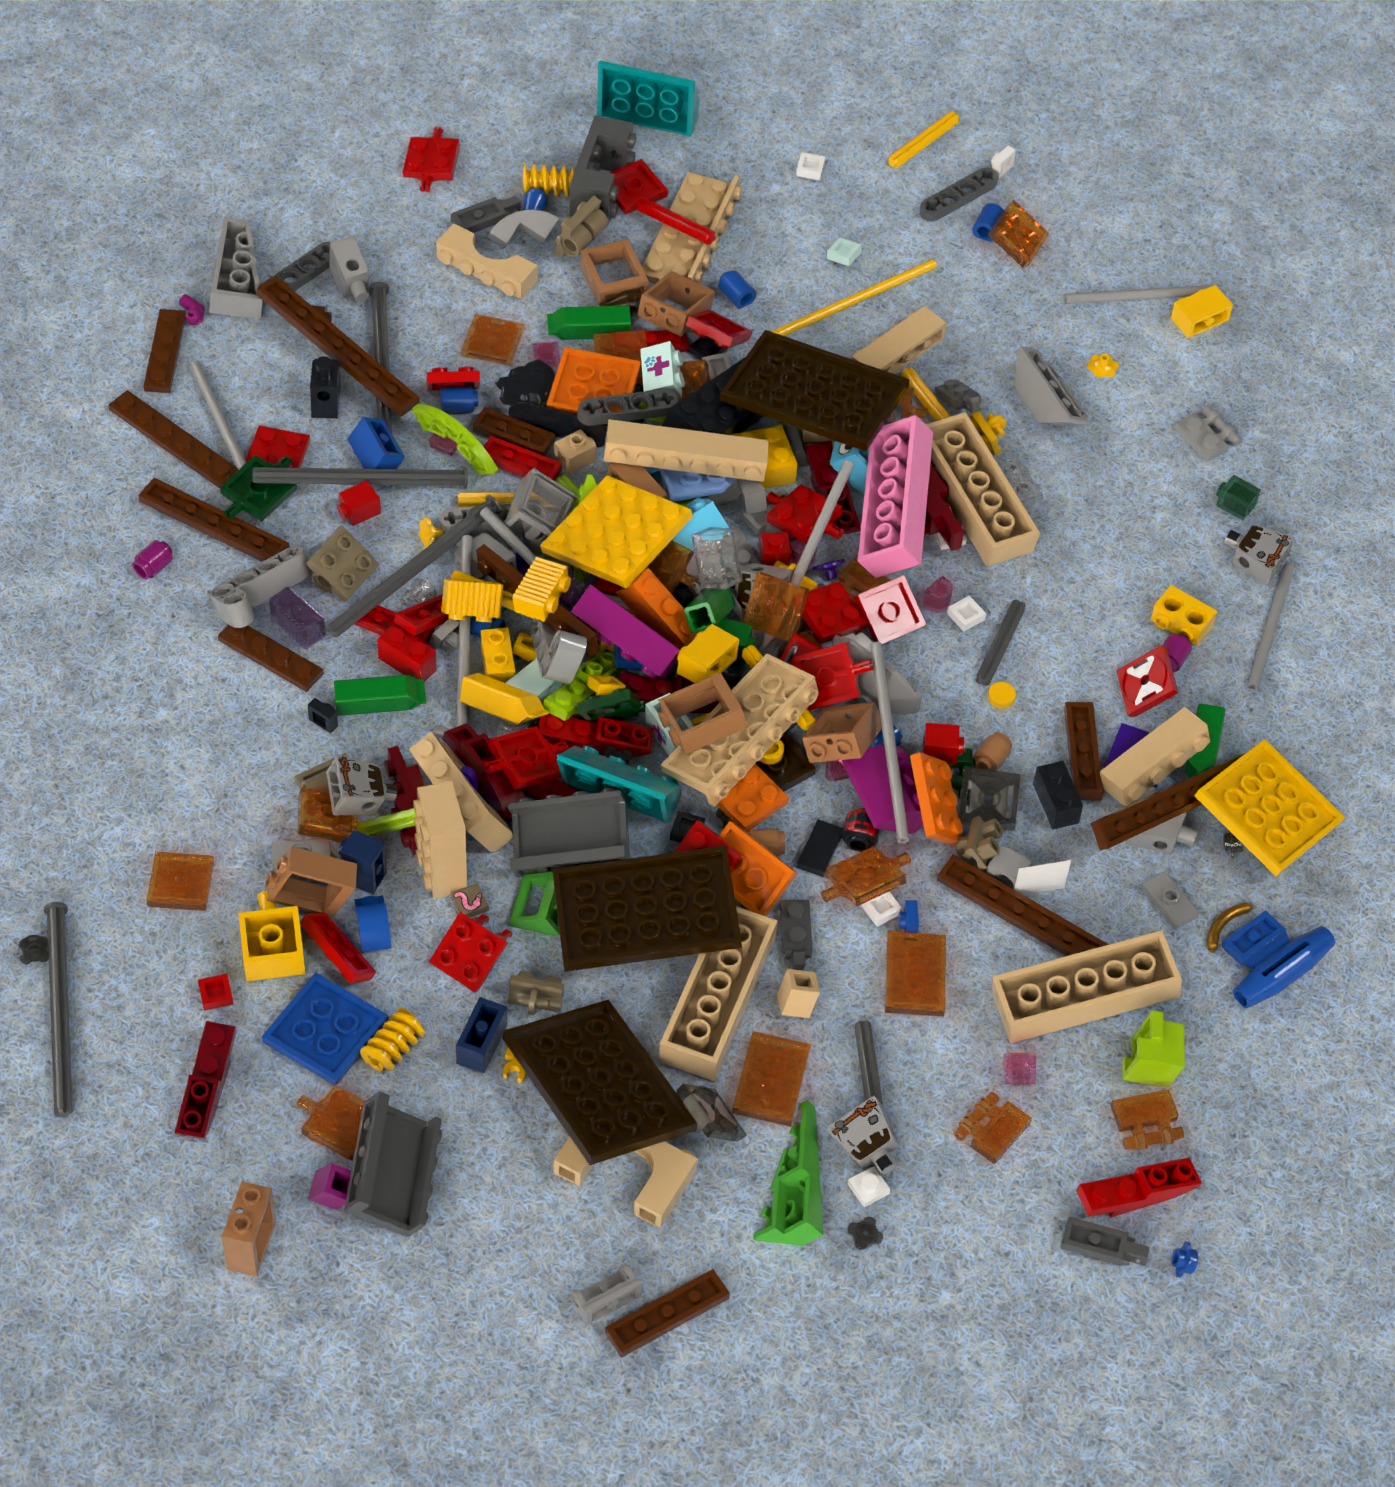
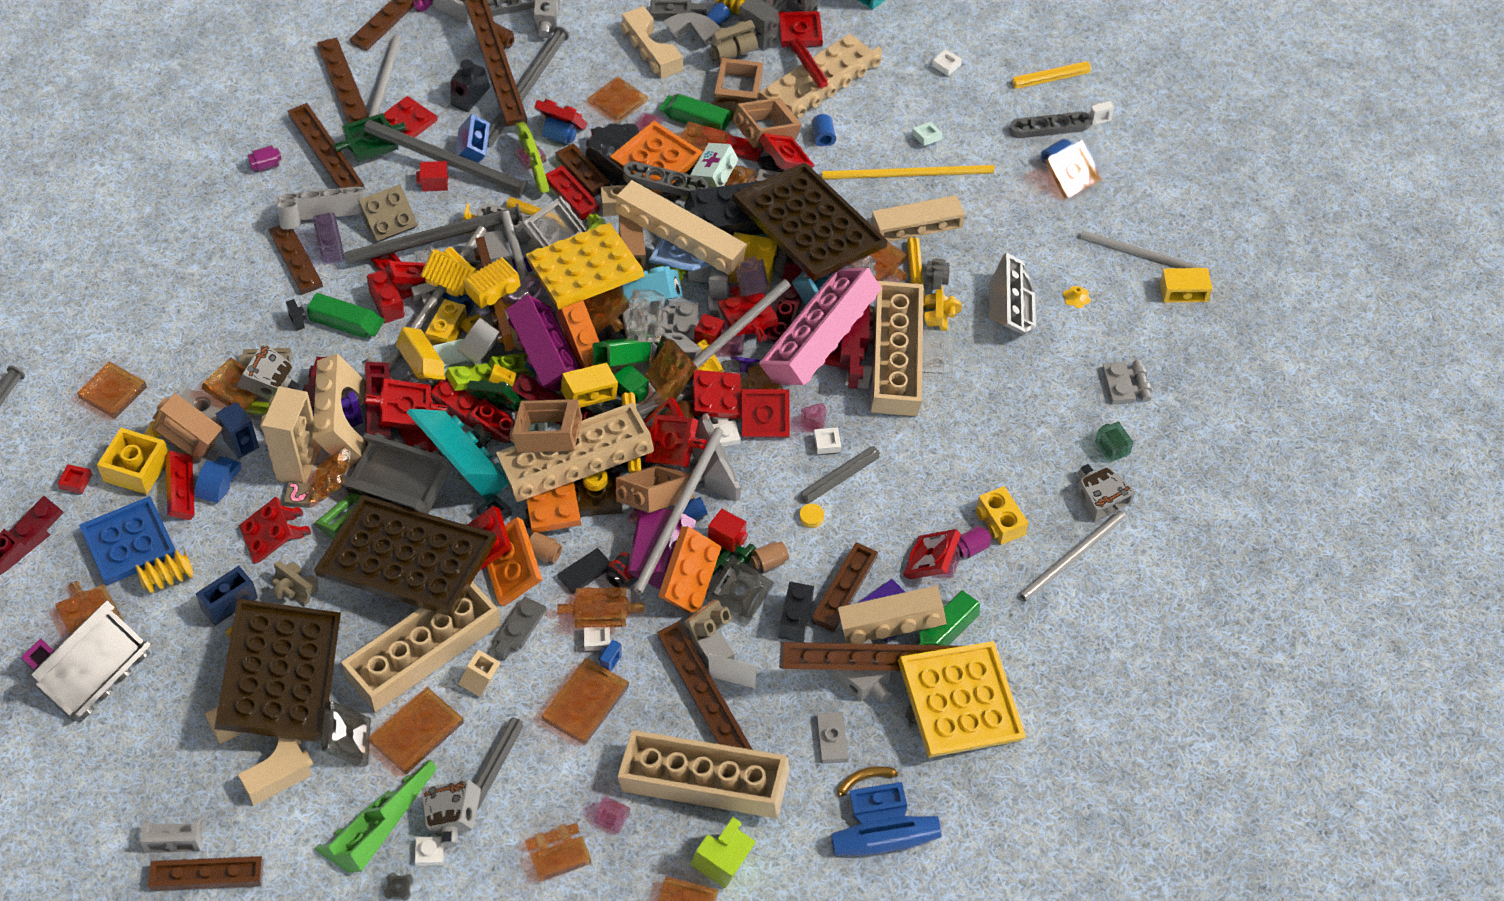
camera: 30 degrees right, 0 degrees up
(495, 858) = (328, 477): none -> clear orange plate
(789, 473) = (751, 276): none -> brick

